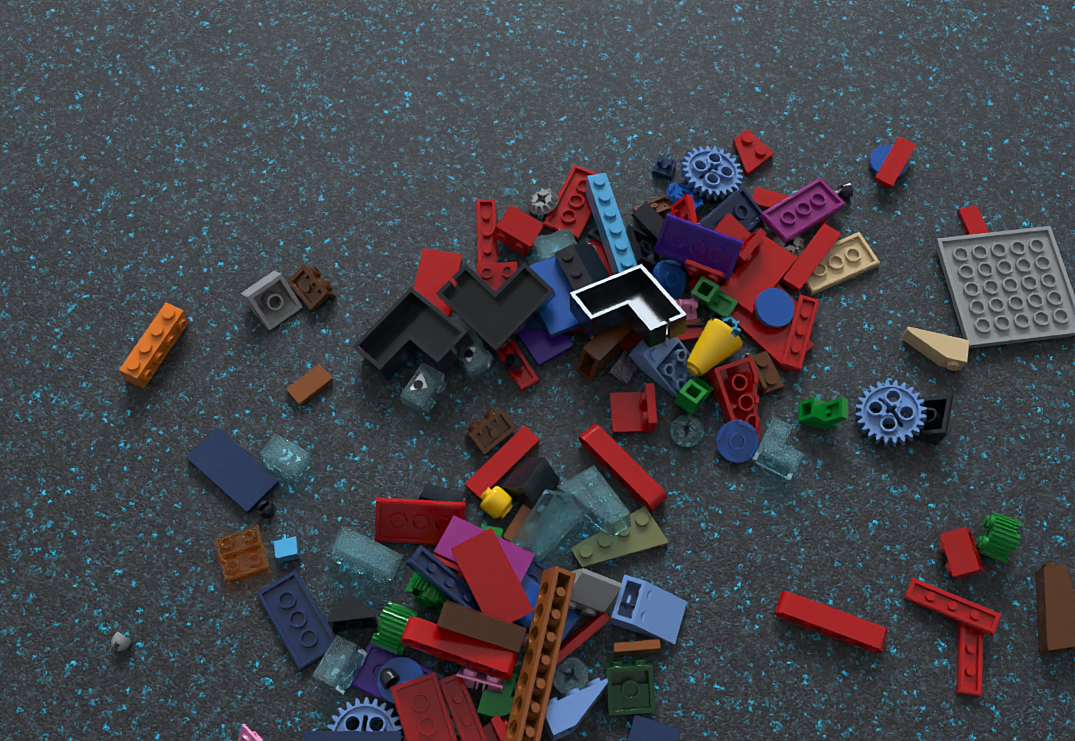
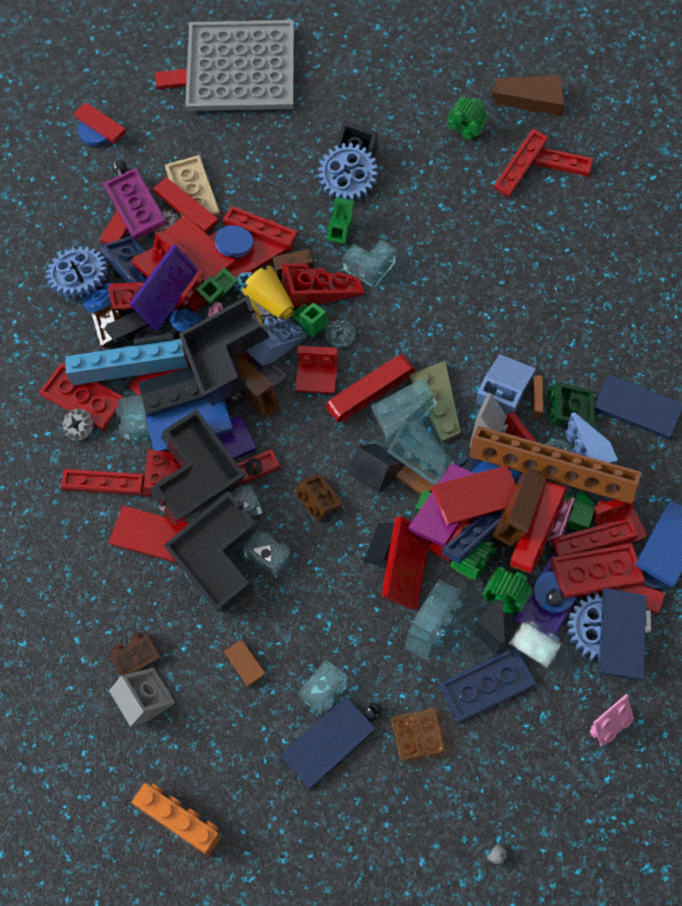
camera: 75 degrees left, 0 degrees up
(286, 549) = (417, 692): dark azure slope -> none
(496, 502) = (393, 496): yellow head -> none
(502, 461) = (351, 490): red tile -> none
(517, 230) = (107, 450): red bracket -> none
(664, 167) = (60, 313): dark blue tile -> none
(737, 441) = (357, 292): blue tile -> none
(751, 152) = (58, 237): red wing -> none
(831, 622) = (526, 250): red beam -> none
(940, 348) = (292, 126): tan slope -> none
(961, 553) = (478, 146): red brick -> none

